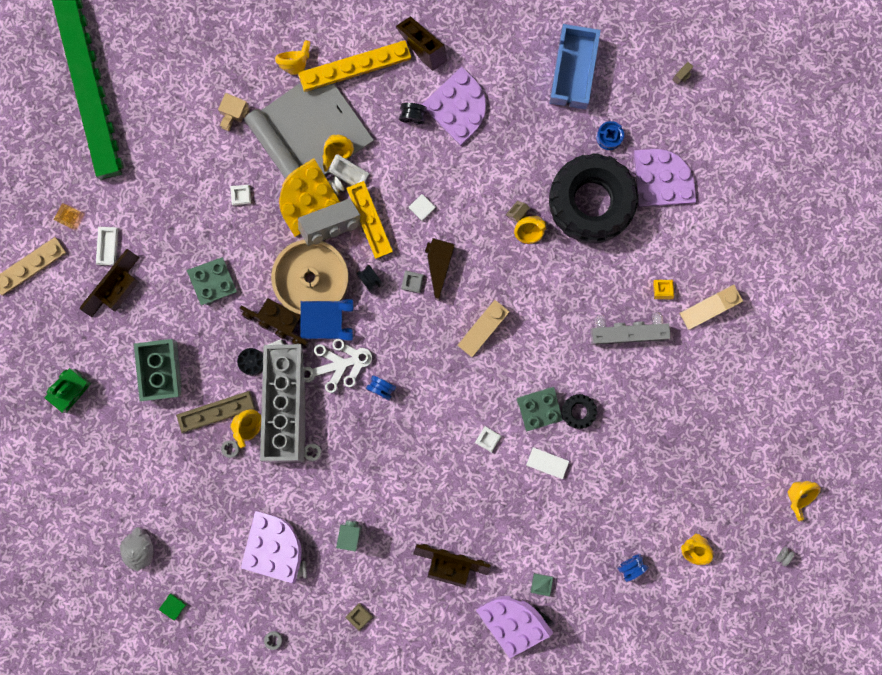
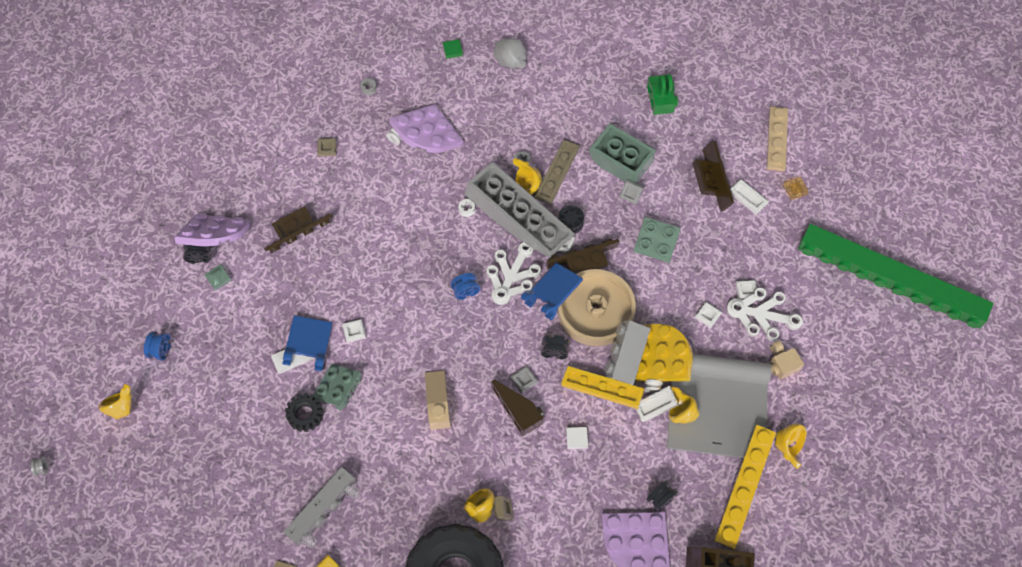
camera: 135 degrees right, 20 degrees down
(184, 336) = (631, 191): none -> light grey tile
(194, 183) = (745, 288): none -> white tile
(205, 157) = (761, 314): none -> white plant
(349, 535) = (383, 177): sand green brick -> none
(526, 463) = (309, 339): none -> blue flag
(797, 490) = (65, 523): yellow hat -> none

